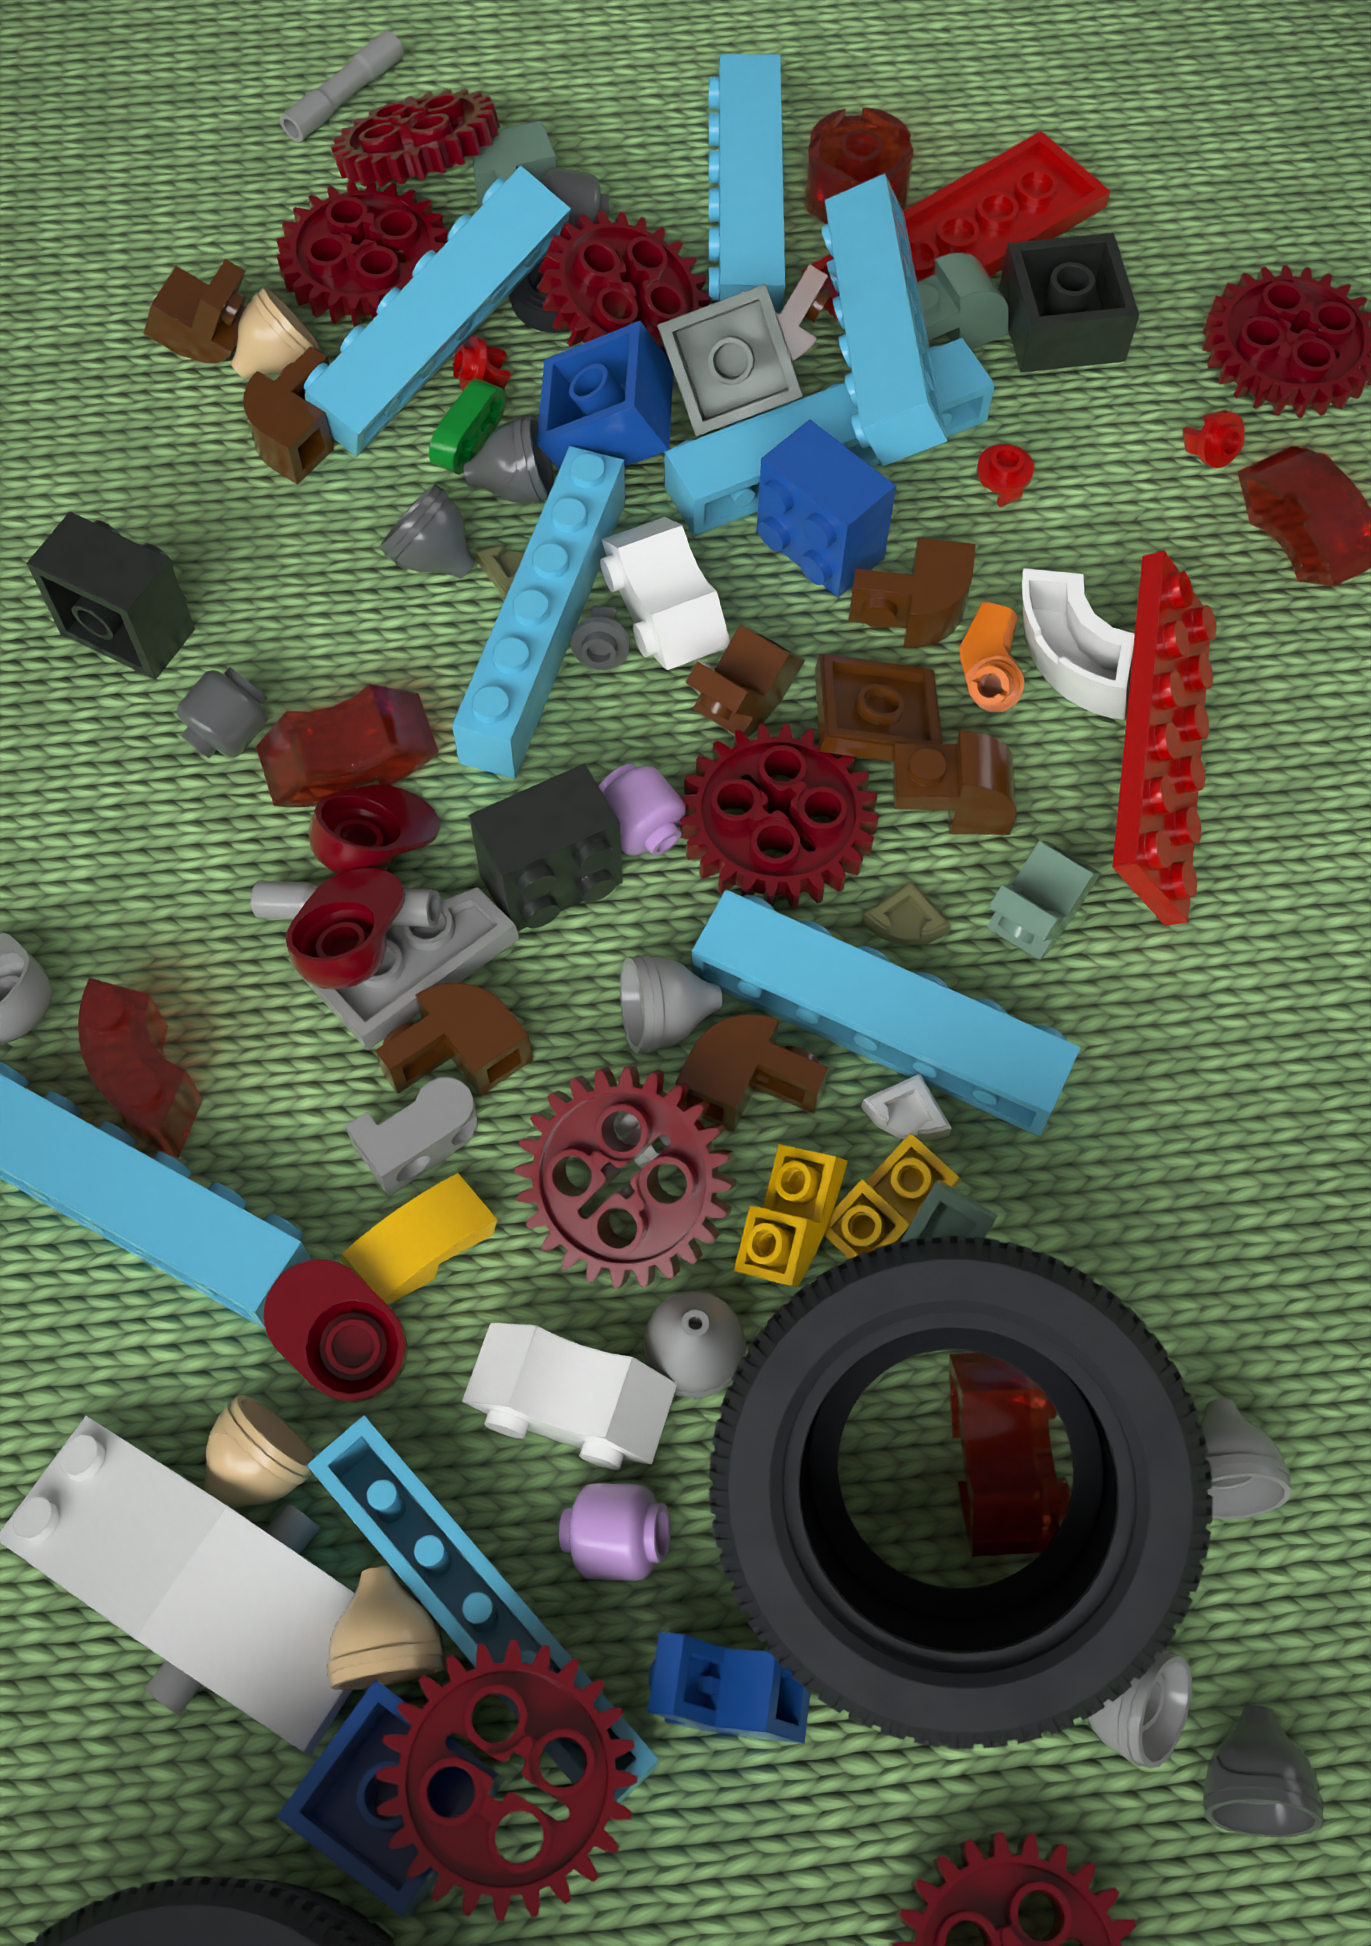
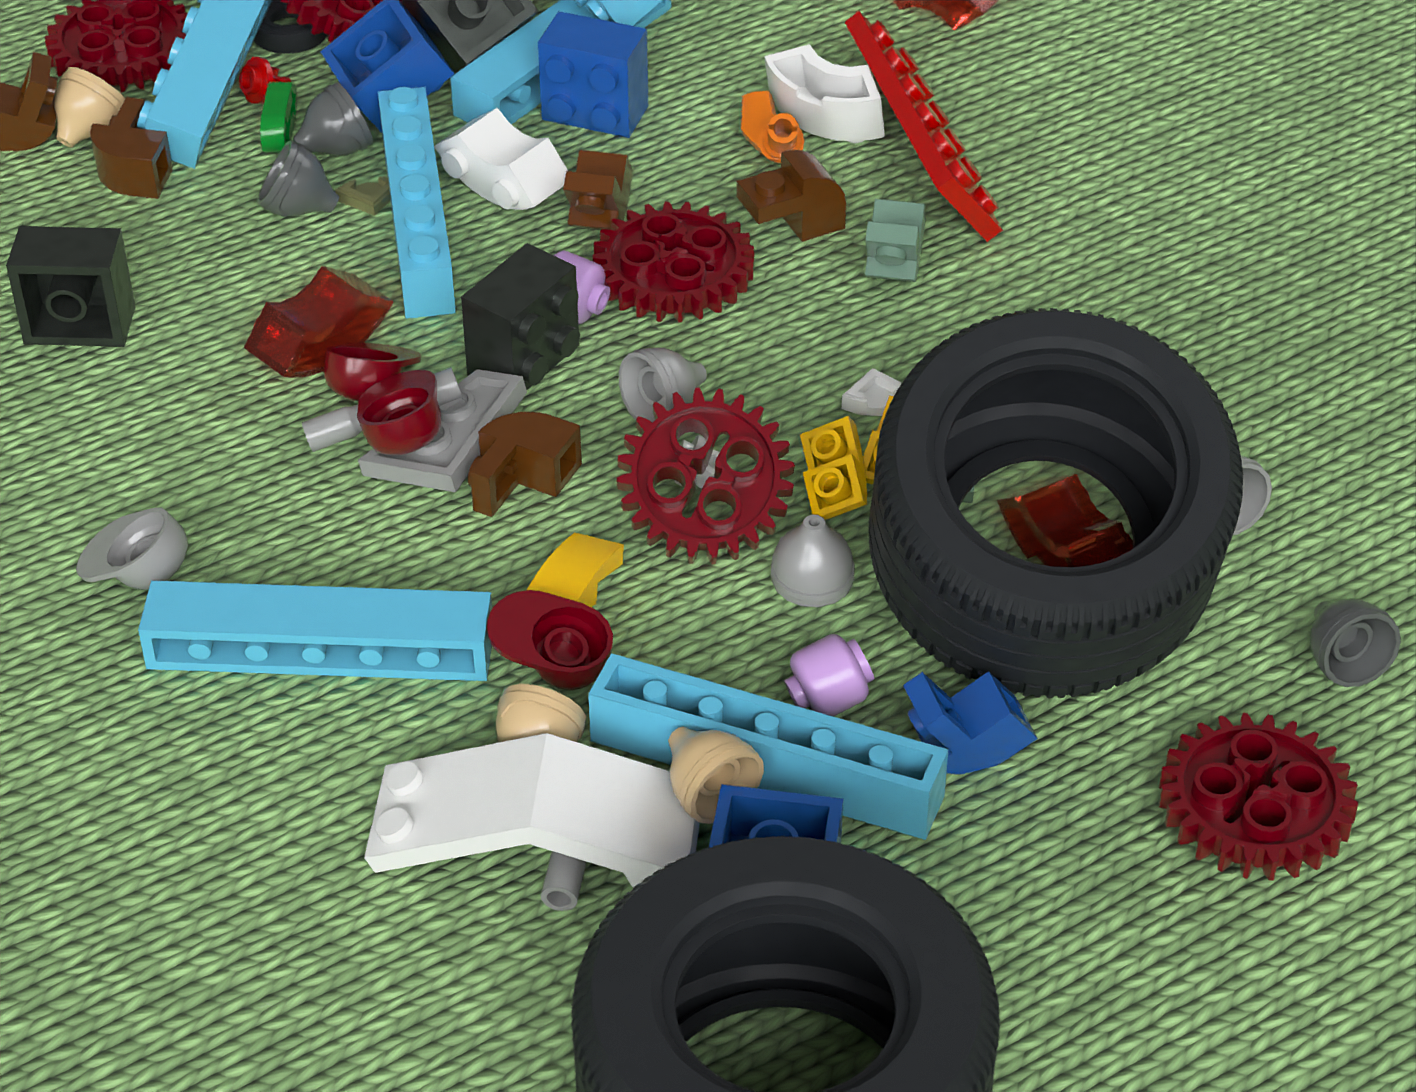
camera: 25 degrees left, 20 degrees down
(125, 1057) = (277, 548): clear red brick -> none
(222, 713) = (203, 336): dark grey head -> none
(418, 1135) = (527, 524): light grey leg -> none
(465, 1846) = (855, 777): dark red gear -> none
(569, 1394) = (743, 614): white brick -> none
(600, 640) = (472, 206): dark grey plate -> none
(742, 1057) = (780, 393): reddish brown brick -> none
(874, 705) = (698, 177): reddish brown tile -> none
(884, 1011) = (811, 337): medium azure brick -> none
(906, 918) = (804, 293): olive tile -> none
(924, 603) = (693, 112): reddish brown brick -> none
(1005, 471) = (708, 21): red plate -> none
(1149, 1715) = (1238, 626): light grey helmet -> none

